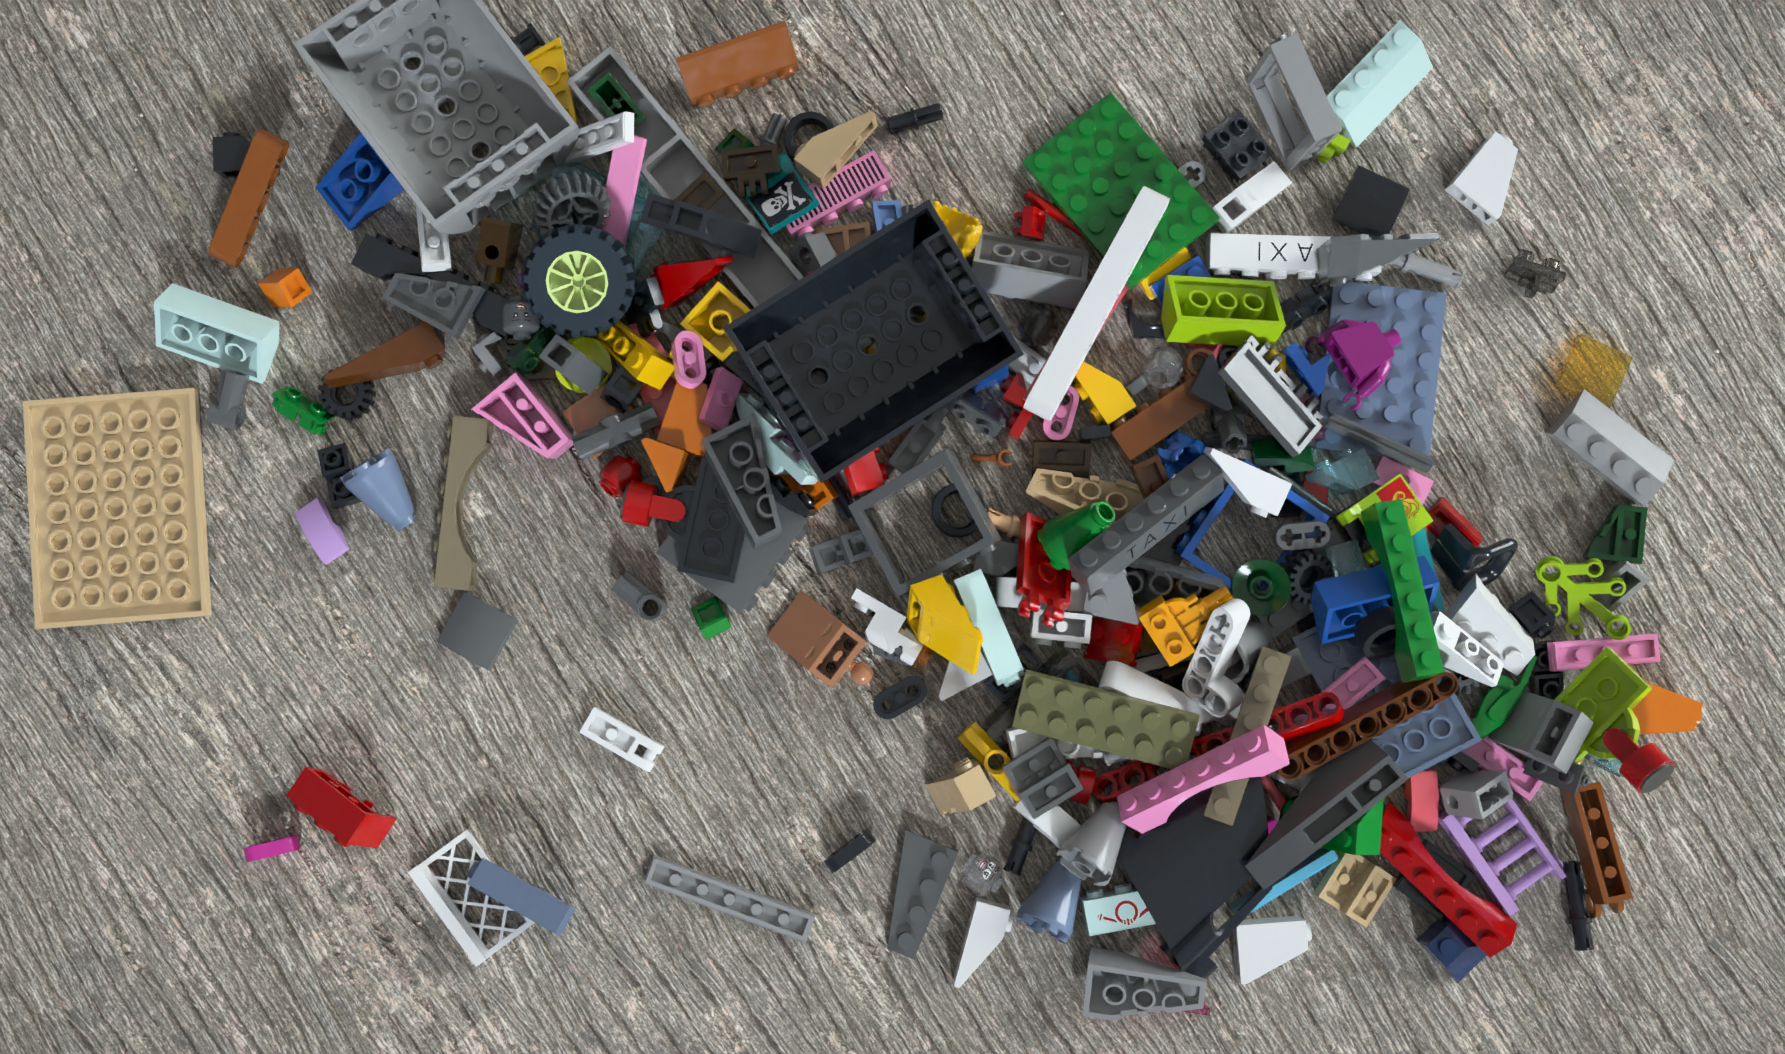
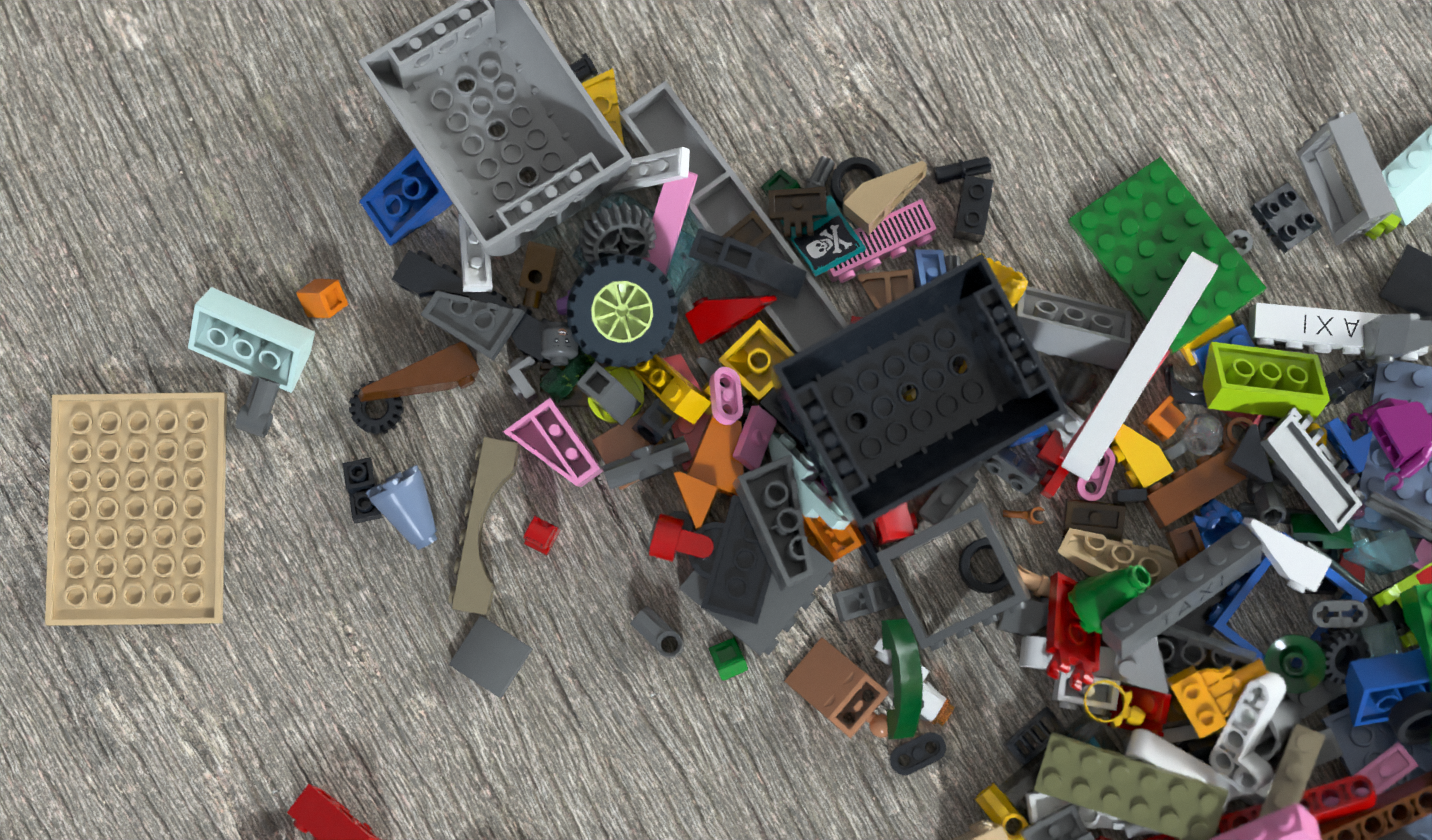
camera: 10 degrees right, 5 degrees down
(229, 154) = (287, 167): black slope -> none
(248, 197) = (295, 207): dark orange beam -> none
(291, 402) = (320, 413): green hinge -> none
(321, 532) = (341, 545): lavender slope -> none
(517, 509) = (541, 535): none -> red leg
(615, 98) = (665, 131): dark green slope -> none
(618, 473) = (644, 508): red head -> none
(620, 738) = (629, 777): white plate -> none
(645, 307) = (684, 341): black hinge -> none
(738, 64) = (790, 107): dark orange slope -> none
(796, 500) = (824, 545): black slope -> none
(812, 252) = (854, 298): dark grey brick -> none
(883, 626) = (907, 678): none -> dark green slope
(926, 157) = (973, 209): none -> black brick
(944, 623) = (969, 680): yellow slope -> none
(958, 679) = (984, 729): white slope -> none
(984, 614) = (1014, 687): light aqua slope -> none
(1032, 223) = (1076, 281): red tile -> none
(1051, 210) = (1095, 269): red bar -> none
(1105, 647) = (1132, 715): none -> yellow piece
(1126, 355) = (1164, 419): none -> orange panel
(1250, 197) = (1297, 269): white slope -> none

